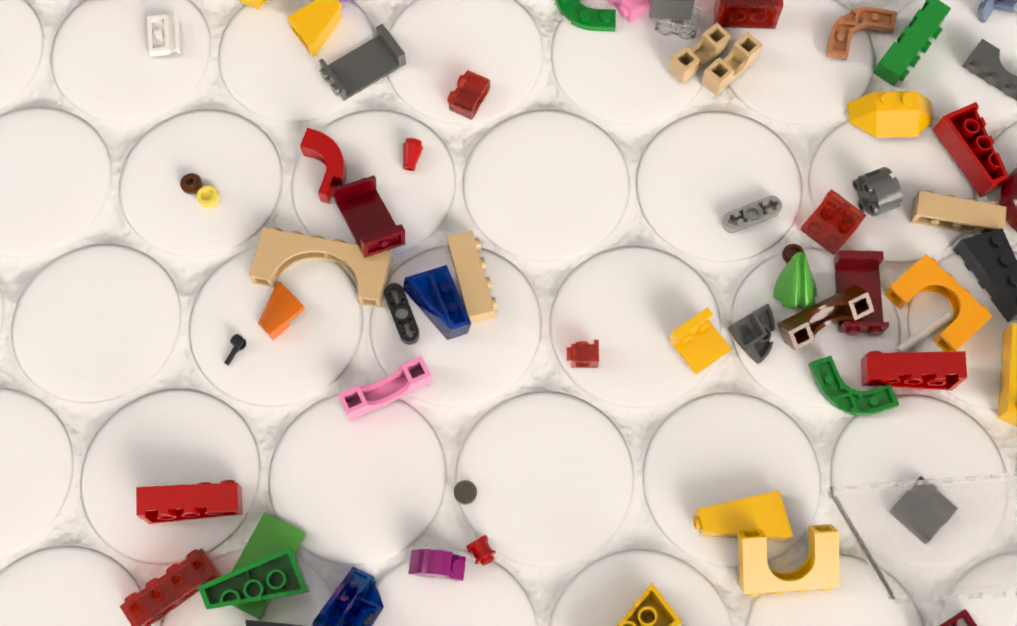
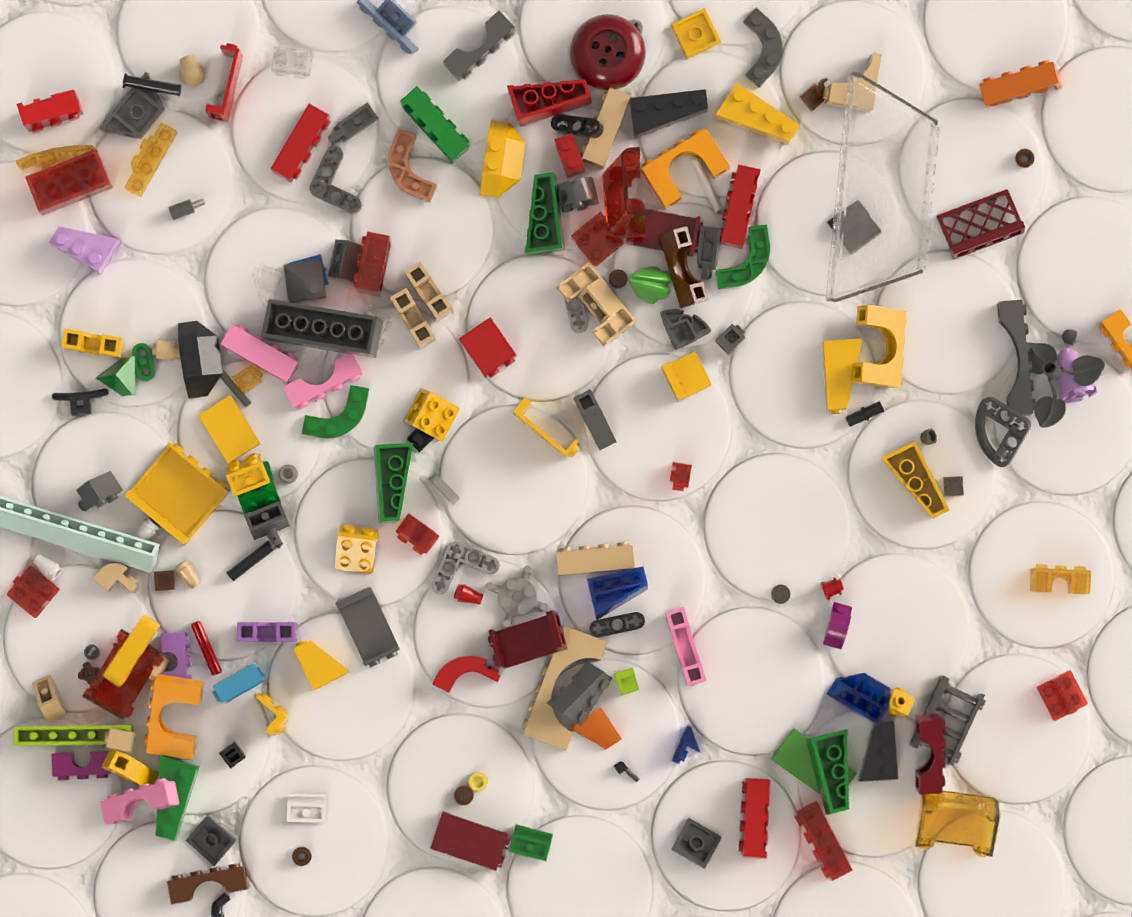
camera: 80 degrees left, 15 degrees up
(111, 34) = (297, 851): none -> reddish brown plate
(138, 195) = (470, 841): none -> dark red panel
(143, 259) = (530, 842): none -> green plate
(156, 439) = (696, 843): none -> dark grey slope
(275, 409) = (687, 740): none -> clear blue slope
(313, 281) = (582, 693): none -> dark grey wedge
(337, 332) = (626, 681): none -> lime panel
(417, 192) = (505, 596): none -> light grey plate
(444, 37) = (356, 548): none -> yellow bracket
(451, 143) = (462, 557): none -> light grey beam
(523, 58) = (391, 477): none -> green wedge
(523, 113) = (444, 488): none -> light grey beam
(574, 85) = (420, 439): none -> black slope
(599, 91) = (431, 414): none -> yellow bracket
(624, 172) = (519, 412): none -> yellow panel
(630, 250) = (594, 419): none -> dark grey slope
(684, 132) = (488, 348): none -> red brick
(701, 558) = (864, 414): none -> black axle
(757, 378) = (735, 331): none -> dark grey brick
(764, 235) = (600, 301): none -> tan bracket
(838, 166) = (545, 220): none -> green wedge
(851, 343) = (708, 250): none -> dark grey hinge
(913, 235) = (623, 216): none -> clear red windscreen
(919, 179) = (569, 155): none -> red brick
(949, 170) = (582, 131): none -> black beam

